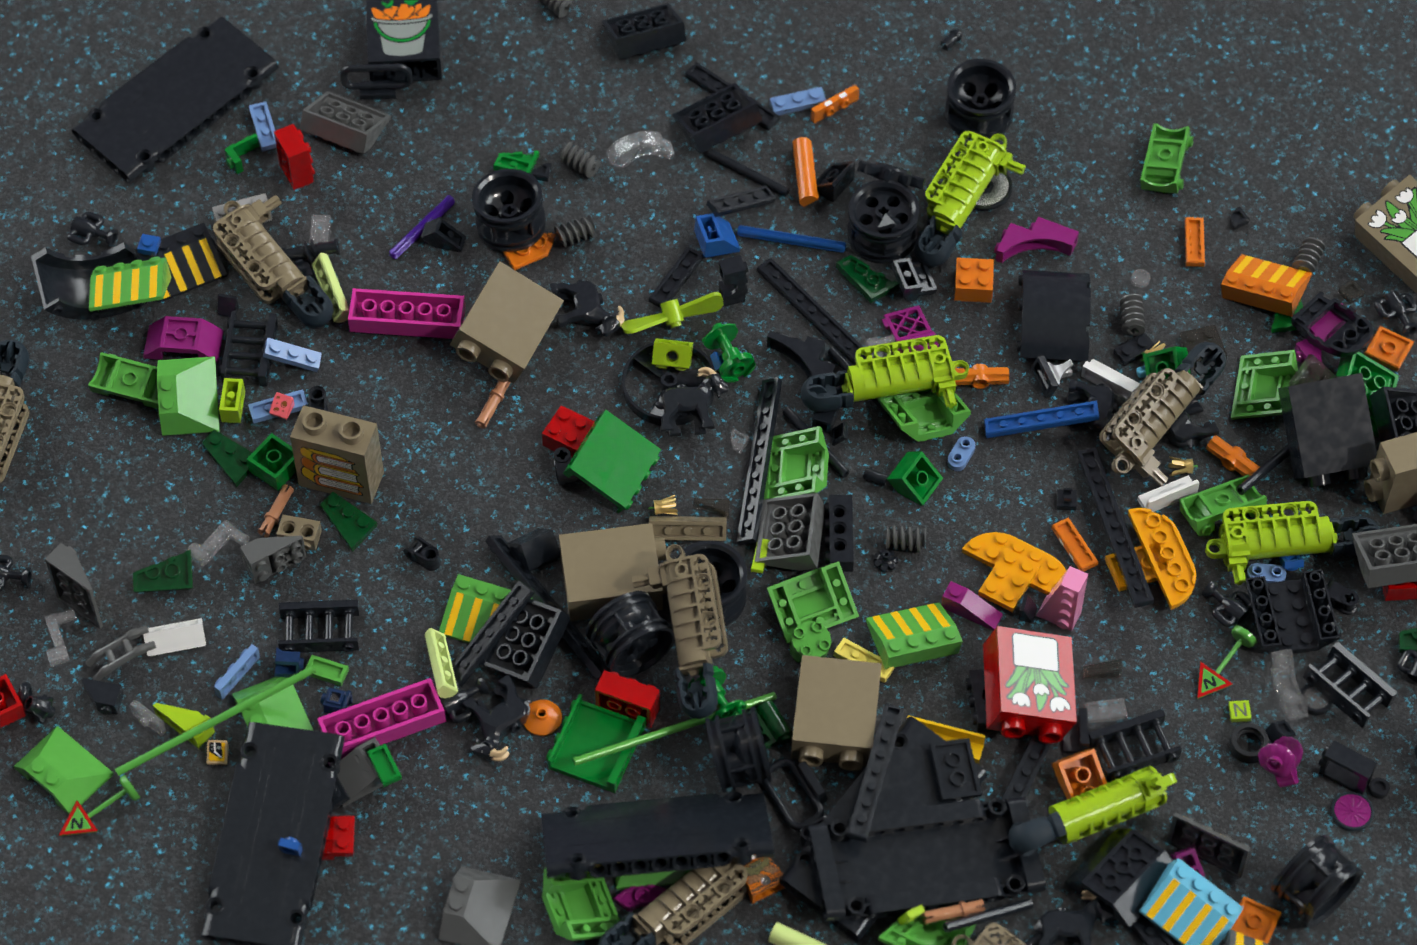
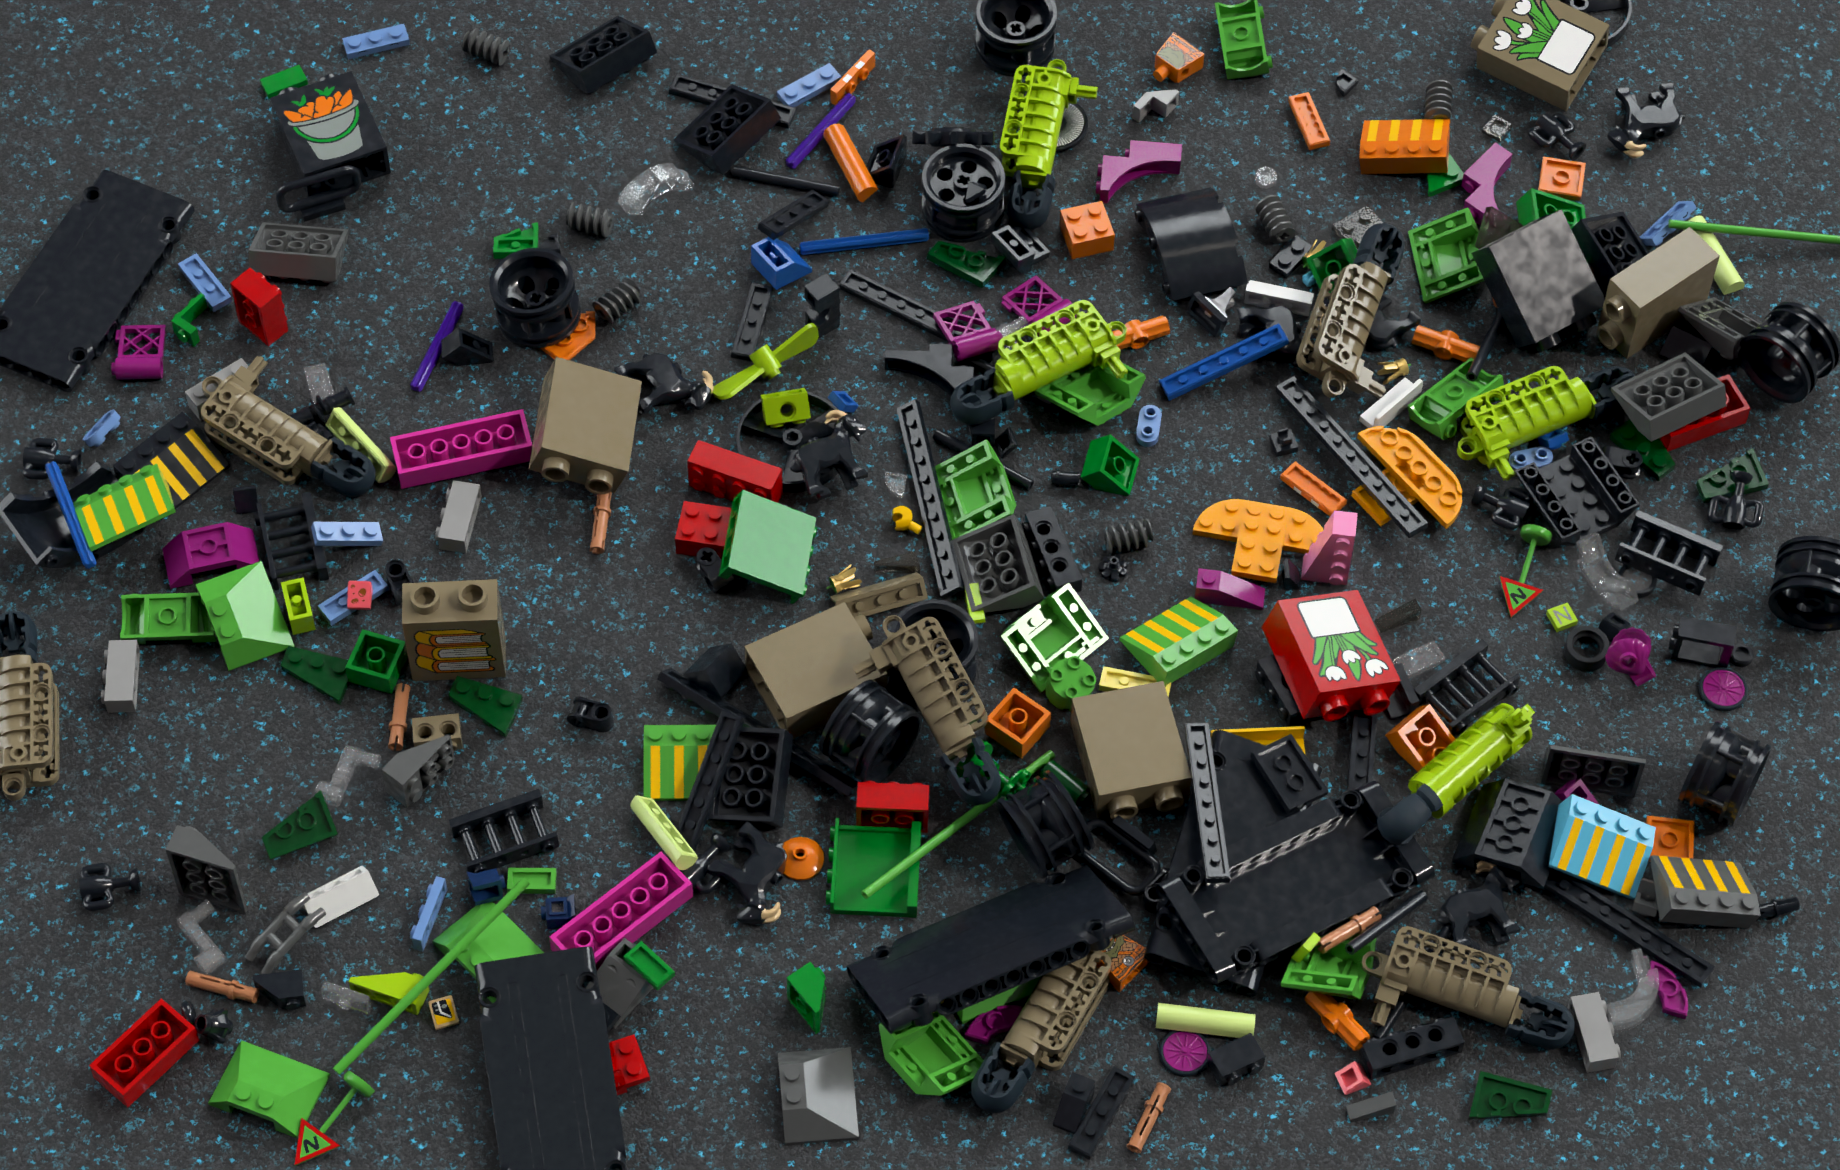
camera: 20 degrees left, 0 degrees up
(65, 683) = (232, 989): none -> nougat pin
(79, 415) = (121, 676): none -> light grey brick
(87, 270) = (70, 515): none -> blue axle
(146, 215) = (106, 423): none -> medium blue plate
(149, 245) = (129, 455): blue plate -> none
(190, 176) = (139, 364): none -> magenta piece
(290, 846) = (580, 1090): blue plate -> none
(384, 366) = (458, 516): none -> light grey brick
(502, 827) = (807, 994): none -> green slope
(606, 393) = (728, 473): none -> red brick
(731, 472) = (903, 518): none -> yellow piece
(734, 363) = (860, 396): green piece -> none
(755, 662) = (1017, 722): none -> orange brick
(786, 143) = (817, 133): none -> dark purple axle
(843, 344) = (972, 341): none -> magenta piece
(1078, 192) = (1159, 101): none -> light grey slope
(1105, 161) = (1177, 60): none -> torso
(1345, 341) = (1520, 179): black slope -> none
(1370, 599) = (1654, 454): none -> dark green wing

